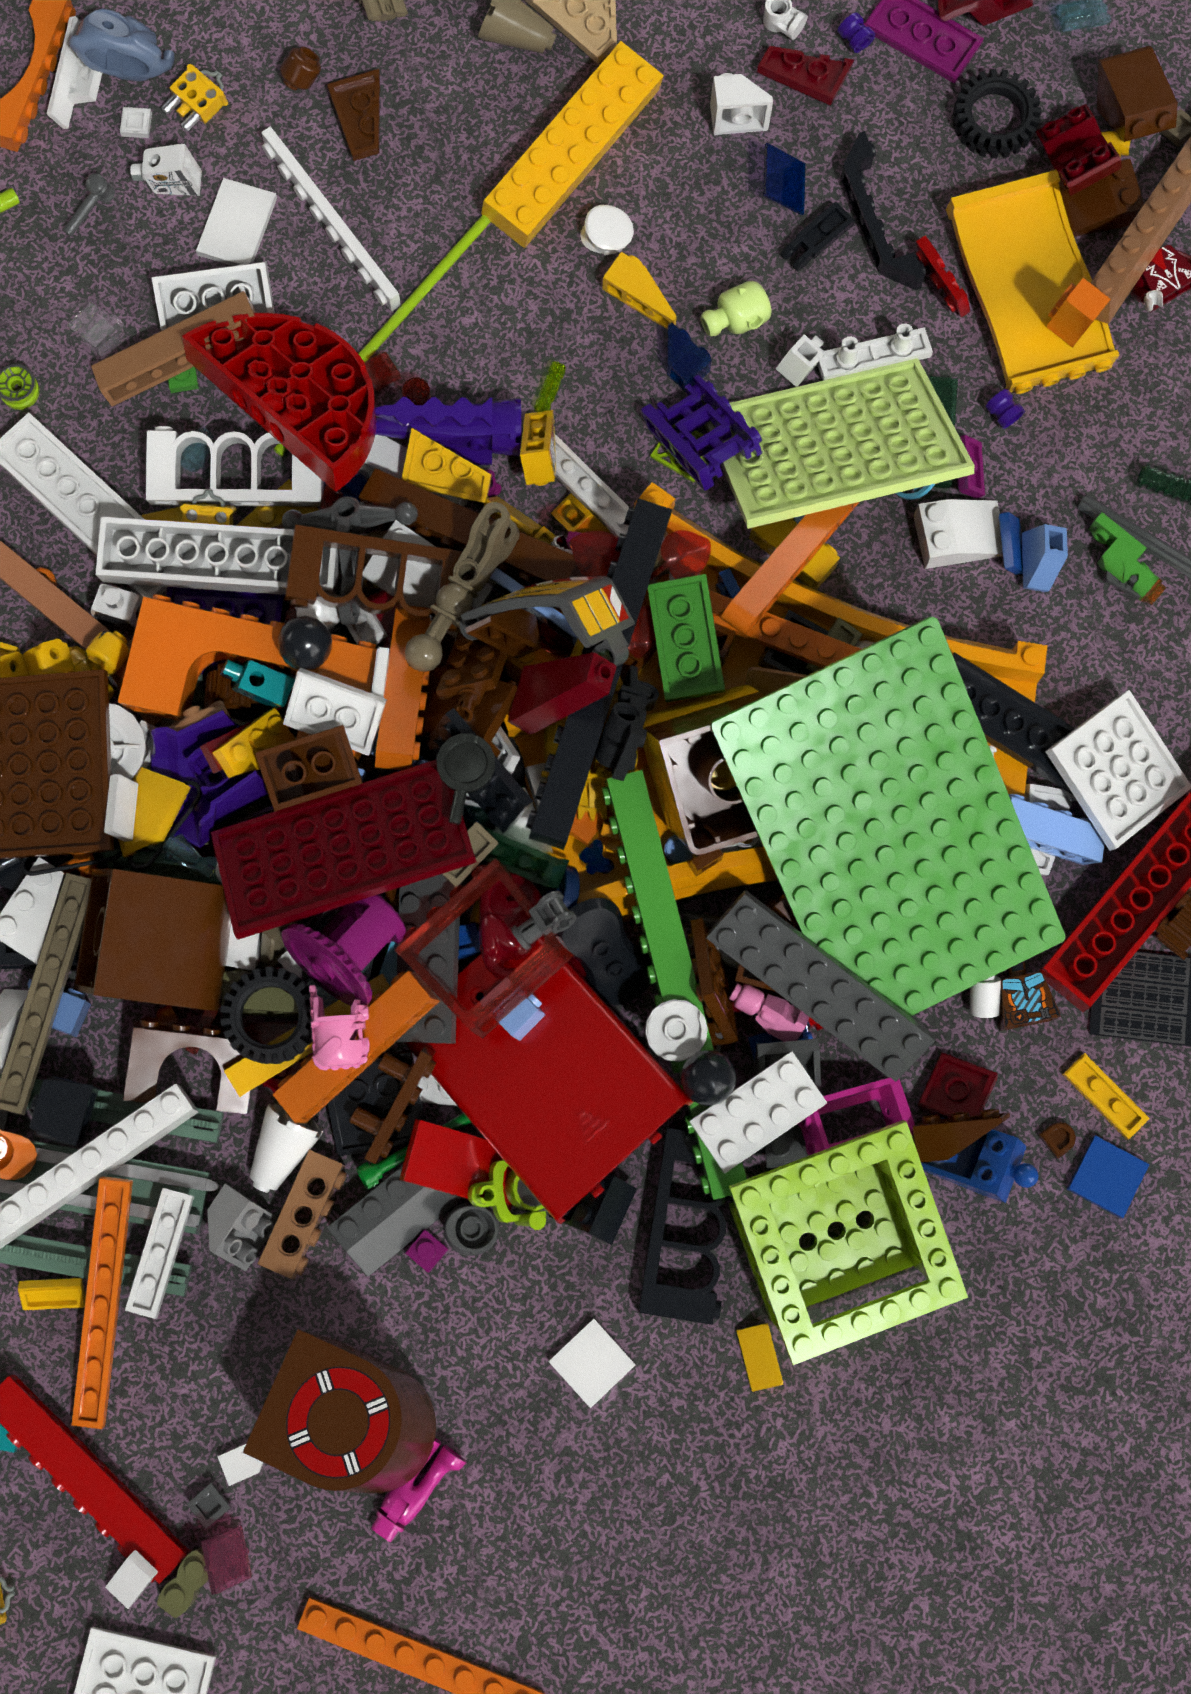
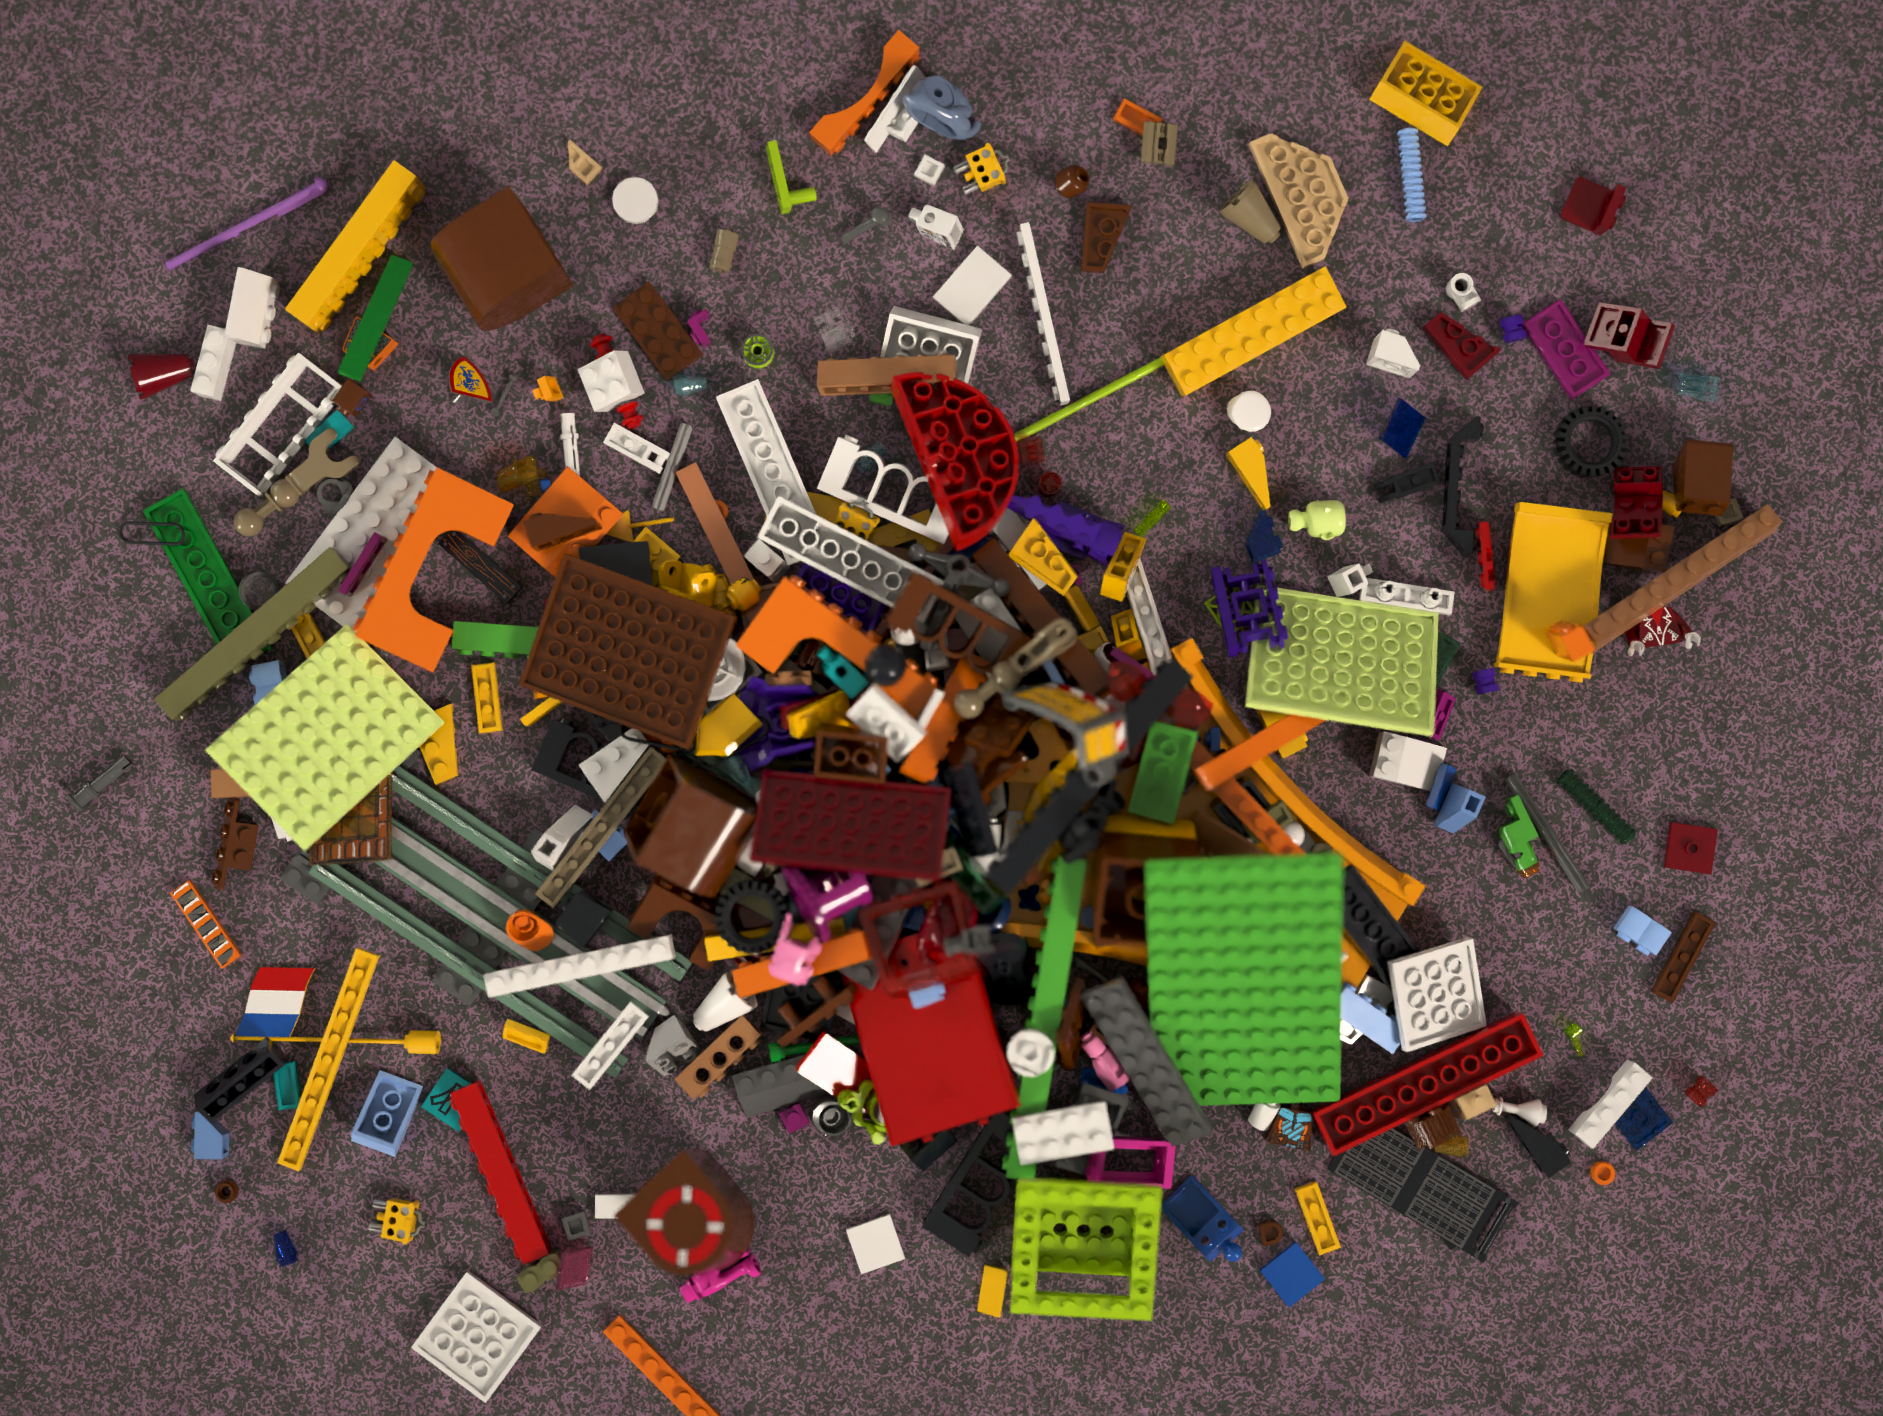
camera: 30 degrees right, 10 degrees up
(102, 1302) = (558, 1060): orange plate -> none
(121, 807) = (707, 721): white tile -> none
(131, 1579) = (506, 1253): white tile -> none
(464, 766) = (961, 810): pearl dark grey piece -> none
(509, 631) = (1031, 719): reddish brown slope -> none
(558, 689) = (1051, 781): dark red slope -> none
(708, 1077) = (1037, 1097): black piece -> none
(943, 1138) = (1193, 1202): reddish brown slope -> none
(957, 1087) = (1213, 1170): dark red plate -> none

